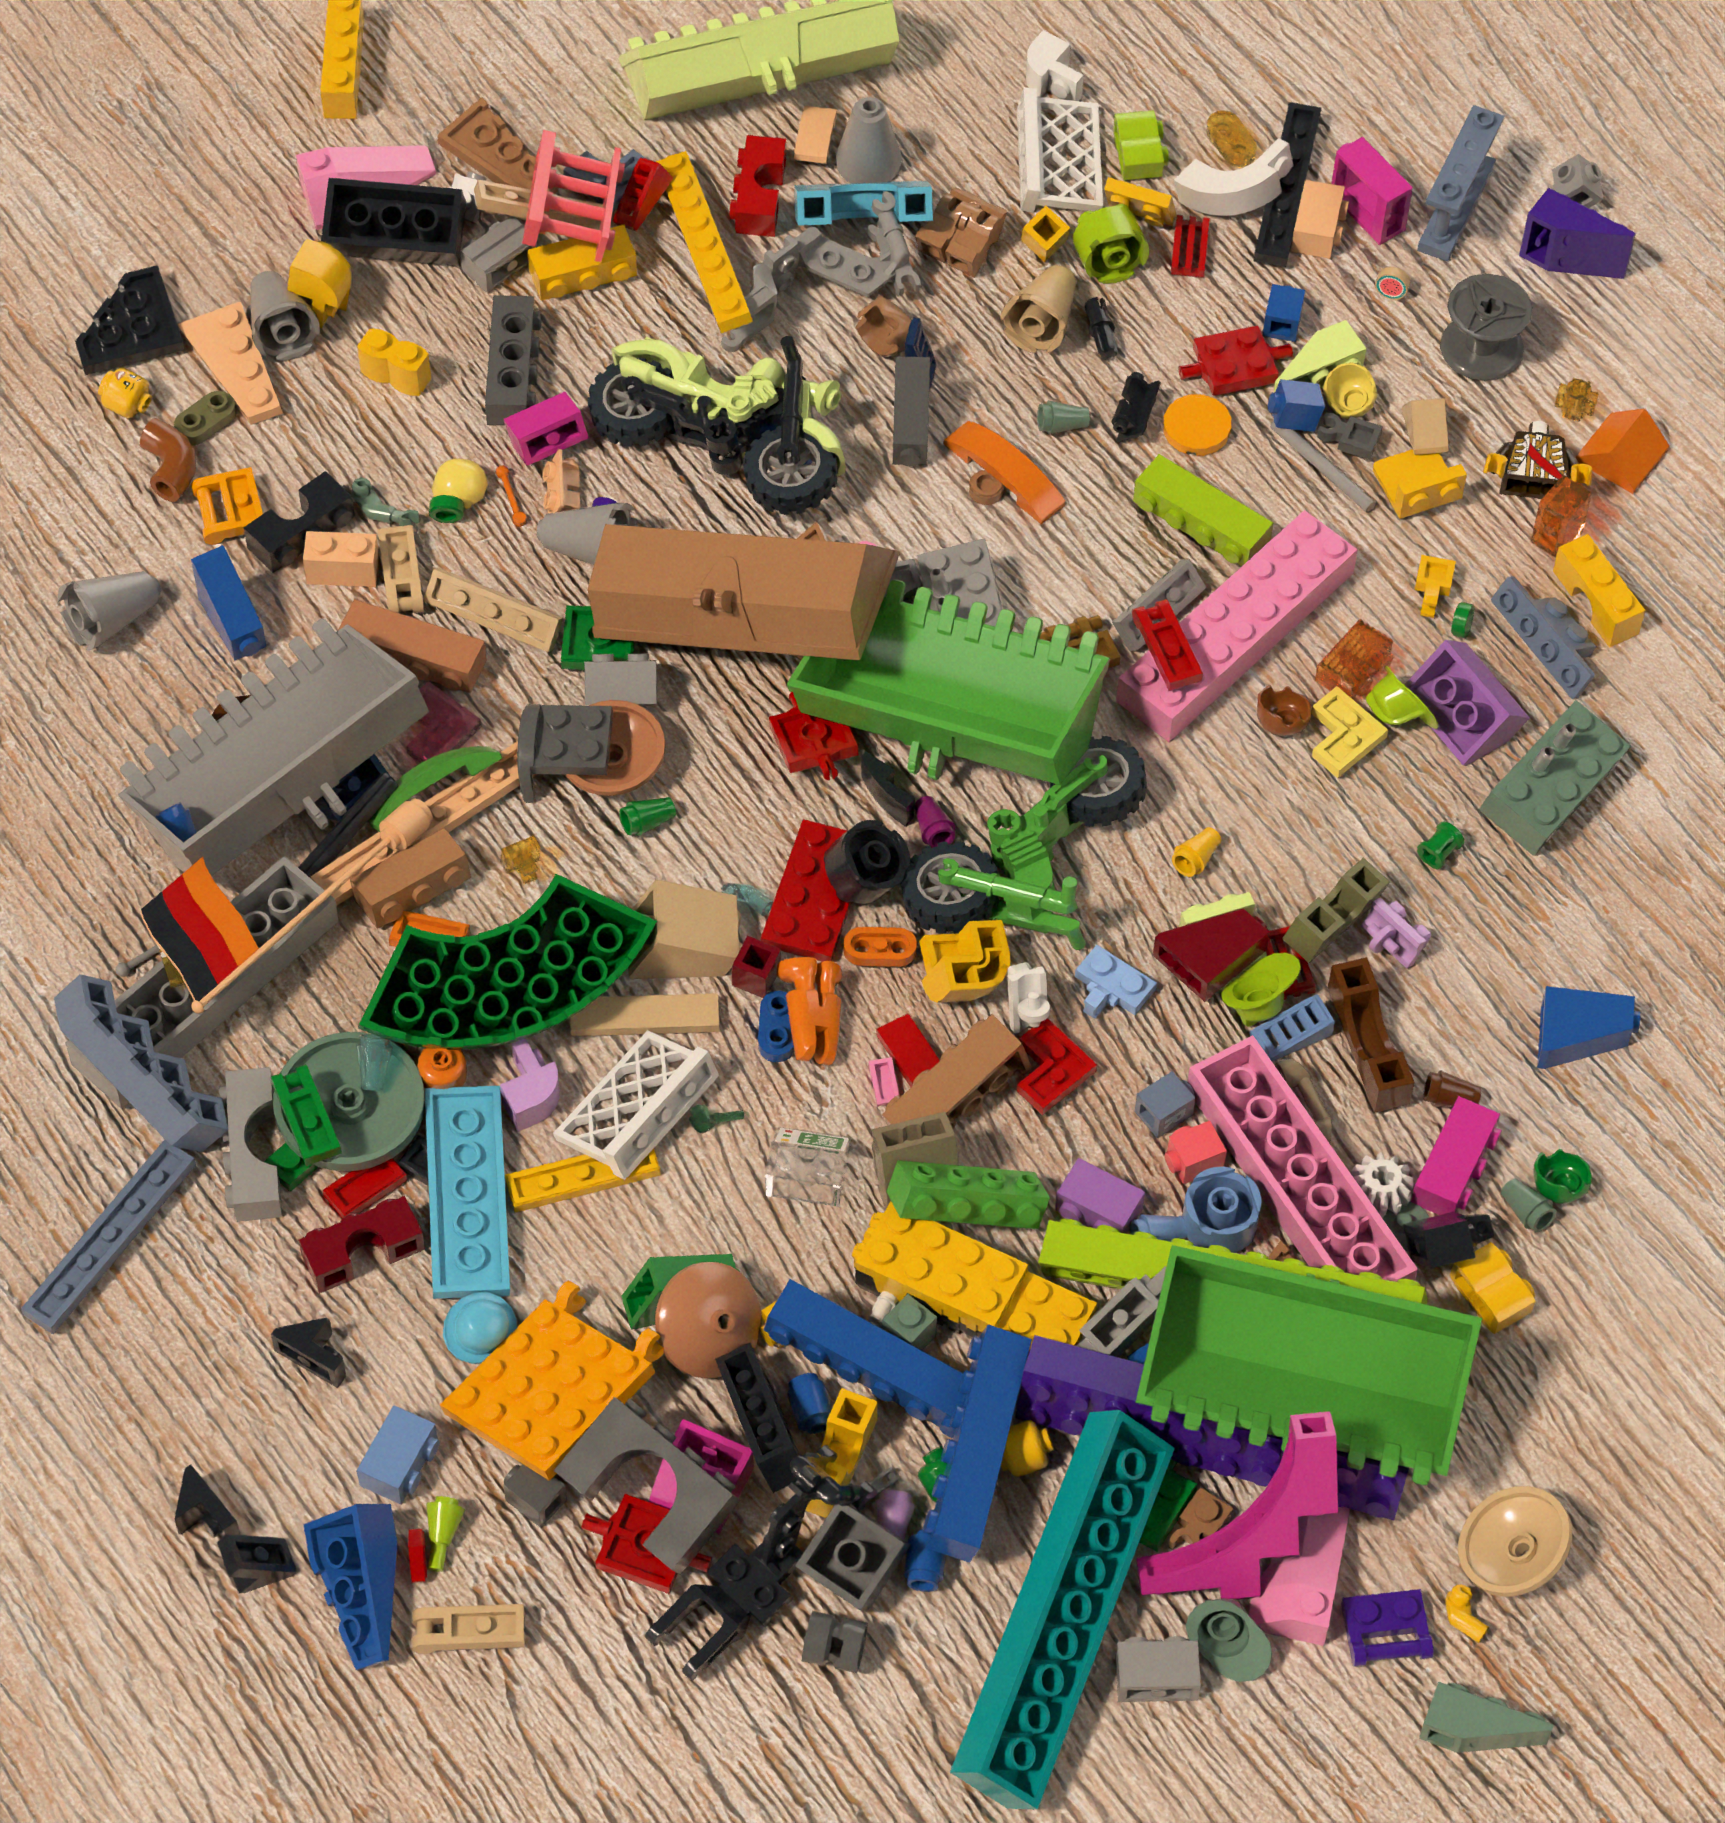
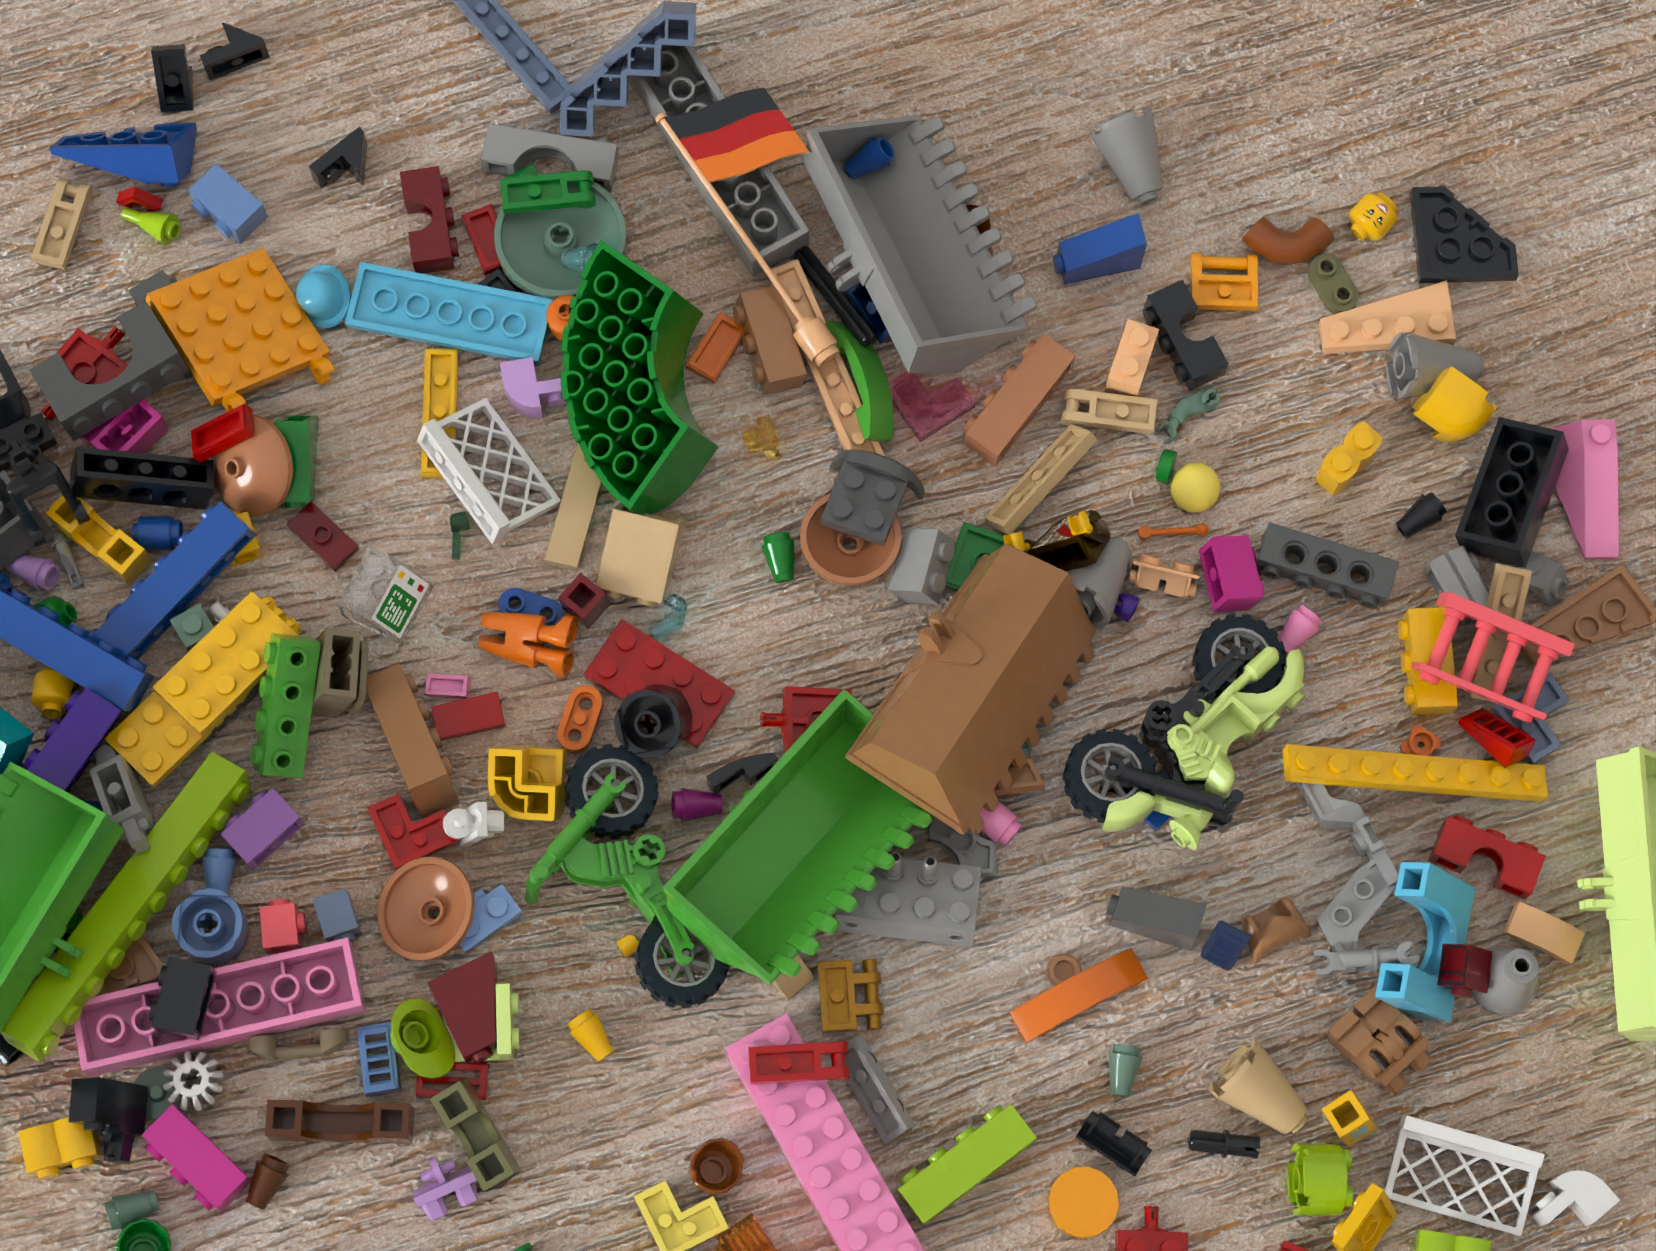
camera: 105 degrees right, 15 degrees up
(433, 297) = (1421, 515): none -> black cone
(558, 558) = (1068, 542): none -> dark brown torso
(579, 368) = (1299, 628): none -> bright pink cone
(666, 257) = (1419, 734): none -> orange plate
(687, 1342) = (222, 432): none -> red tile
(761, 1244) = (323, 536): none -> dark red plate
(880, 165) = (1464, 969): none -> dark red brick
(1096, 845) = (628, 945): none -> yellow hand
(1144, 996) = (409, 907): none -> nougat dish
(1312, 1184) = (182, 998): none -> black brick

